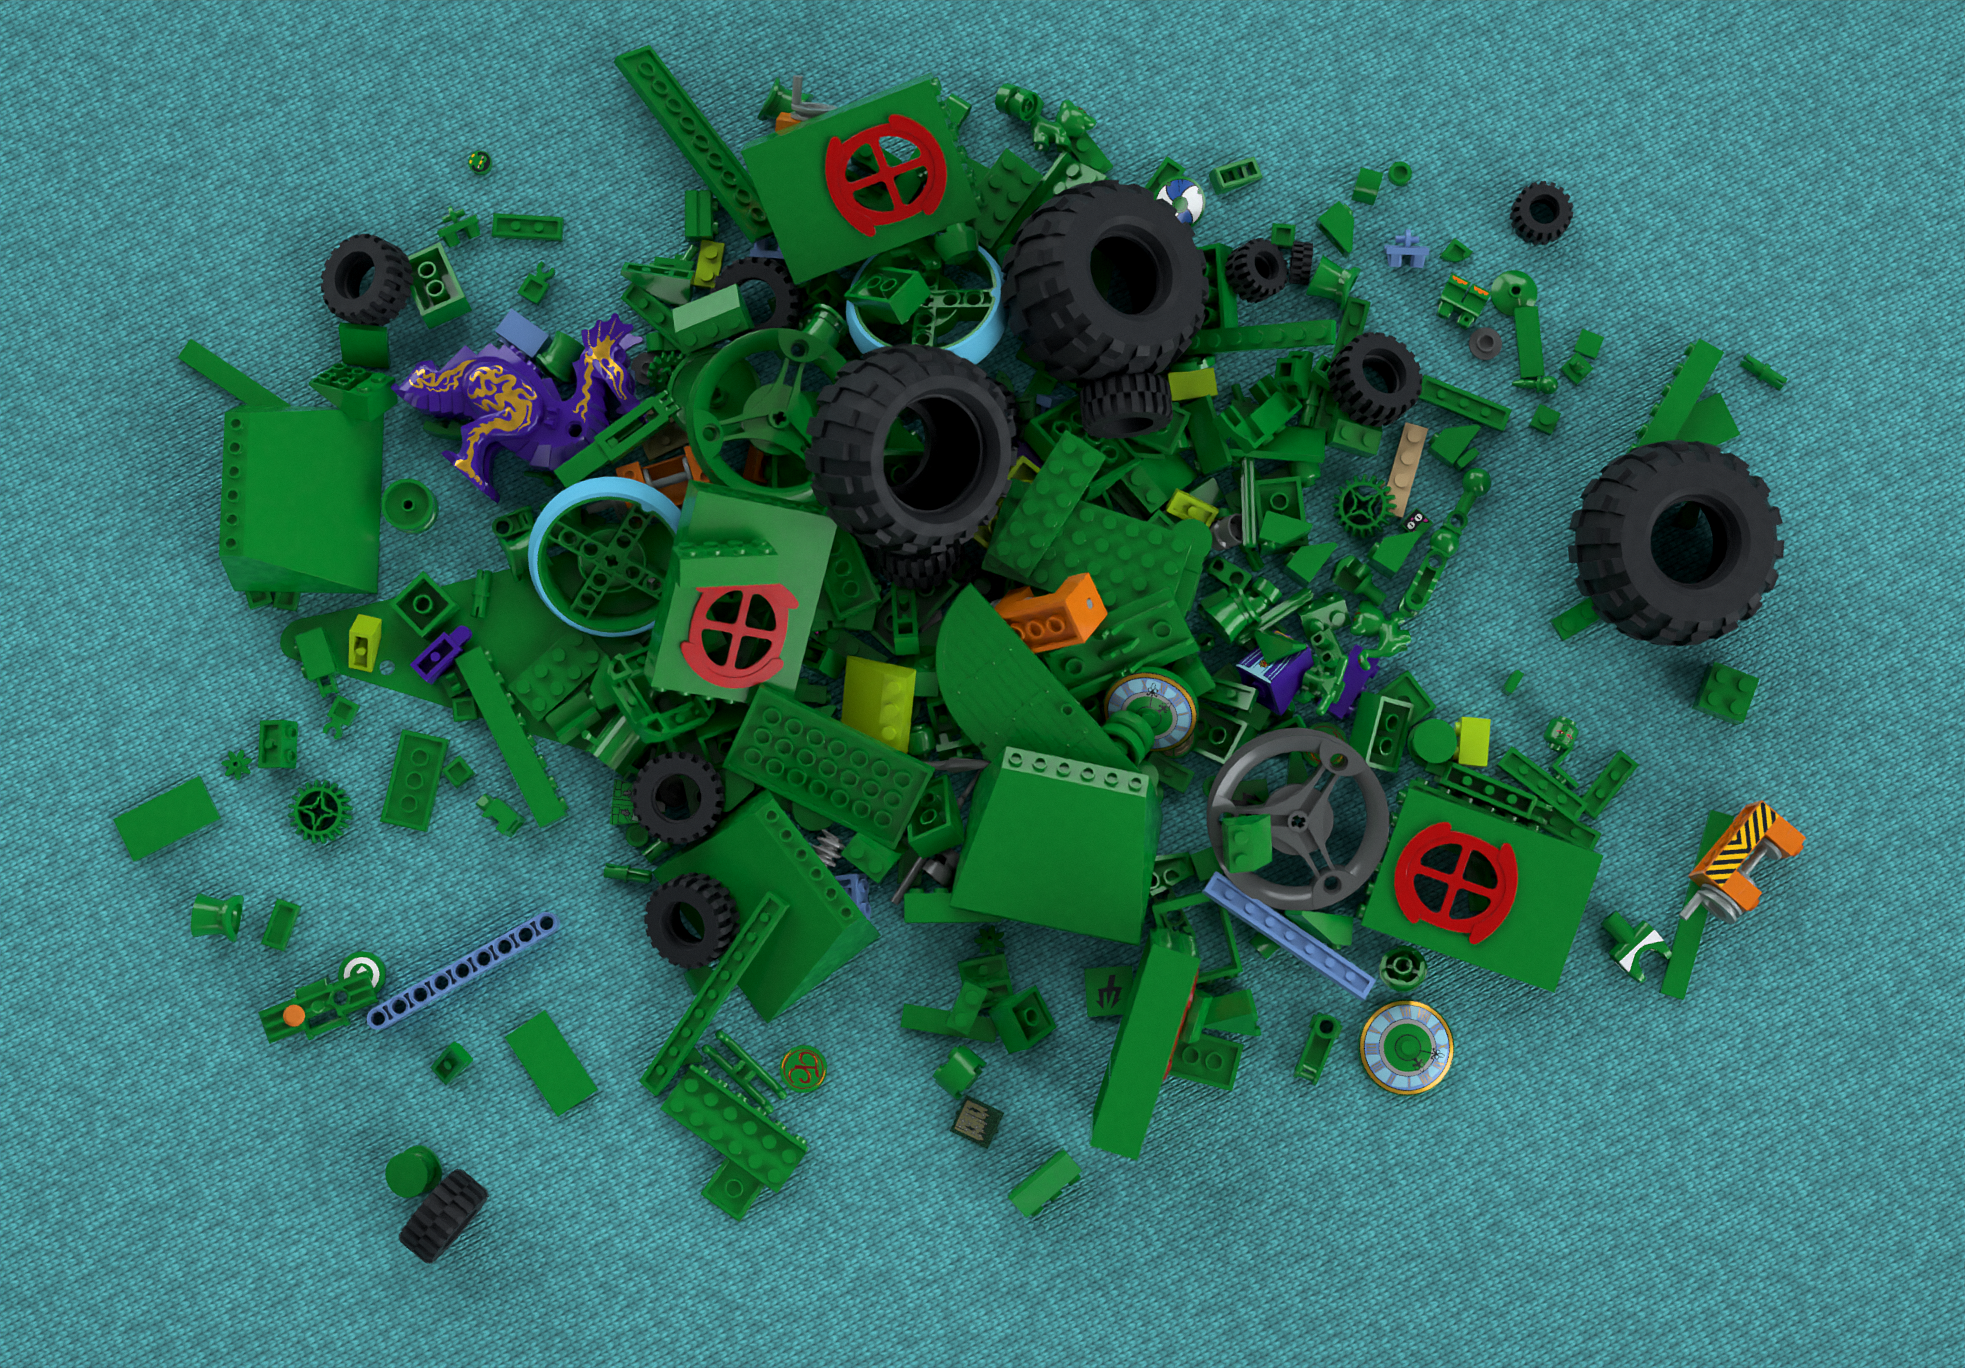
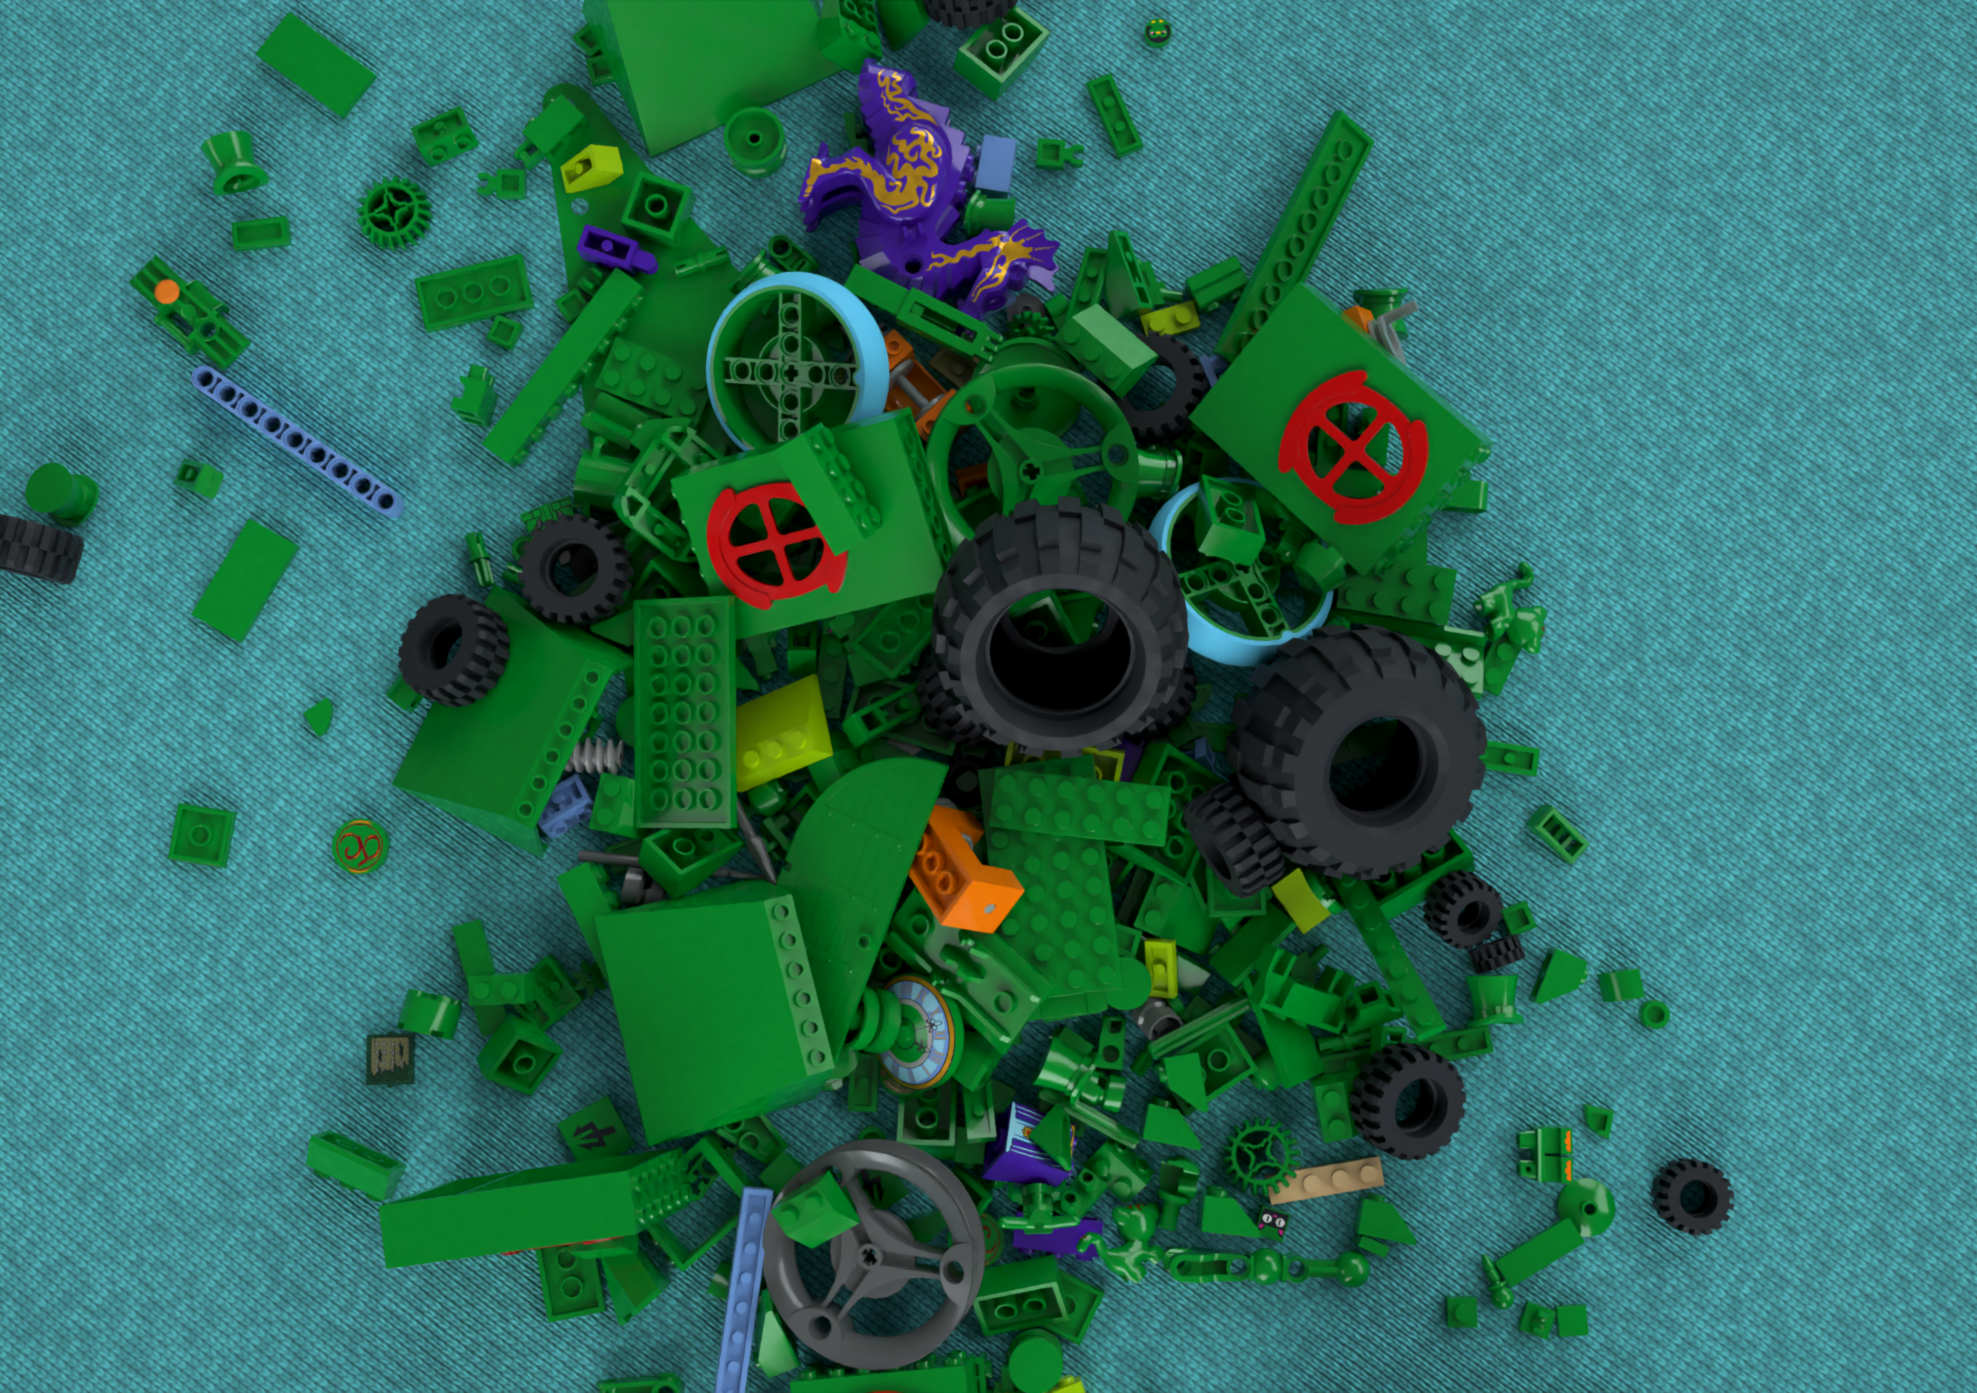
camera: 65 degrees right, 0 degrees up
(240, 764) = (405, 106): green plant -> none
(363, 961) = (261, 338): green tile -> none
(449, 232) = (1066, 38): green hips -> none
(714, 993) = (389, 712): green plate -> none
(735, 1127) = (263, 805): green bracket -> none
(745, 1071) = (329, 786): green piece -> none
(1017, 101) = (1514, 557): green wheel -> none
(1184, 196) = (1502, 789): shield -> none
(1209, 646) = (1029, 1047): green hinge -> none
(1416, 253) = (1574, 1077): medium blue hips -> none
(1464, 403) = (1433, 1213): green plate -> none
(1485, 343) = (1512, 1203): dark grey piece -> none

